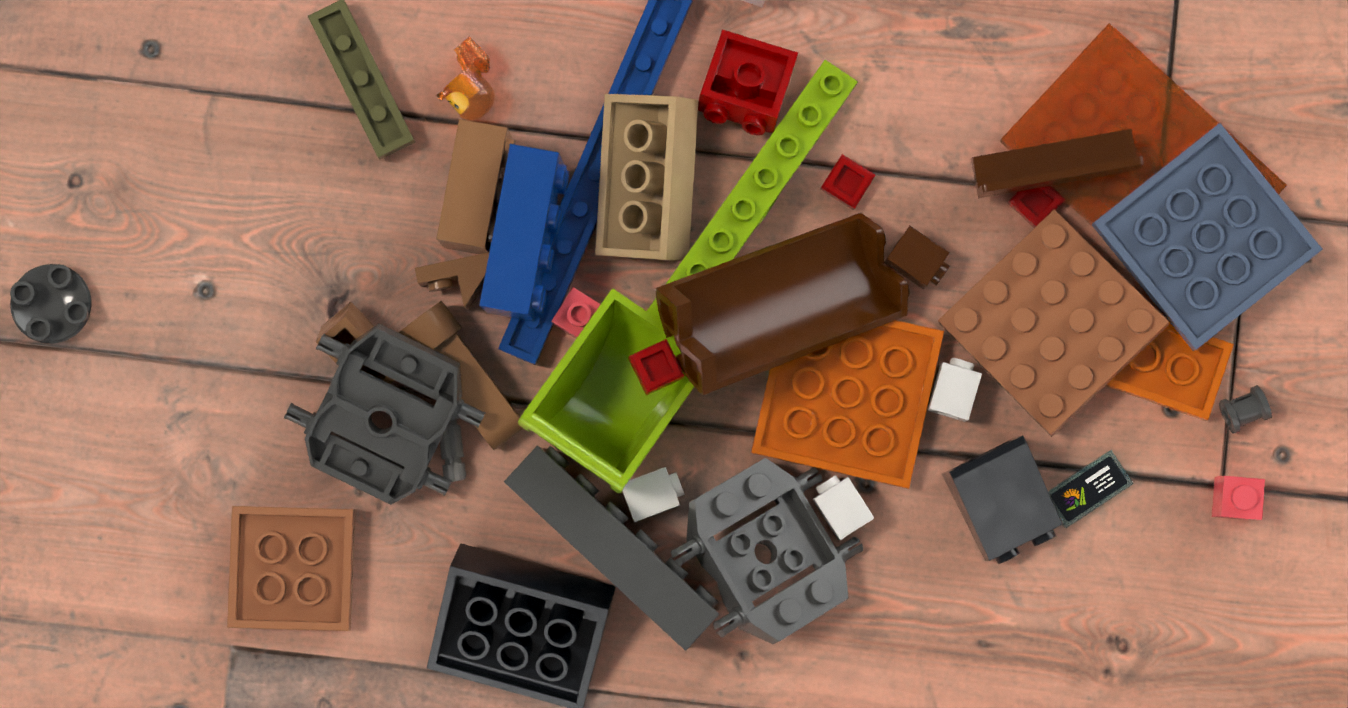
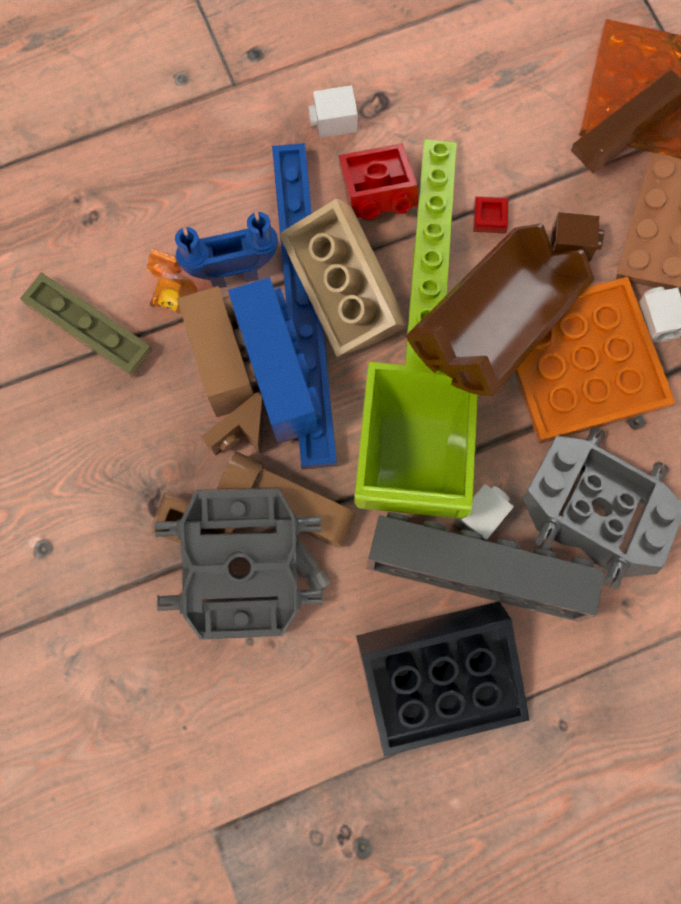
camera: 35 degrees left, 10 degrees down
(291, 568) = (227, 735): nougat plate -> none
(539, 90) = (229, 252): none -> blue connector
(575, 312) = (348, 407): coral brick -> none
(656, 367) = (440, 398): red tile -> none
(842, 506) = (635, 443): white brick -> none
(1036, 203) = (632, 161): red tile -> none

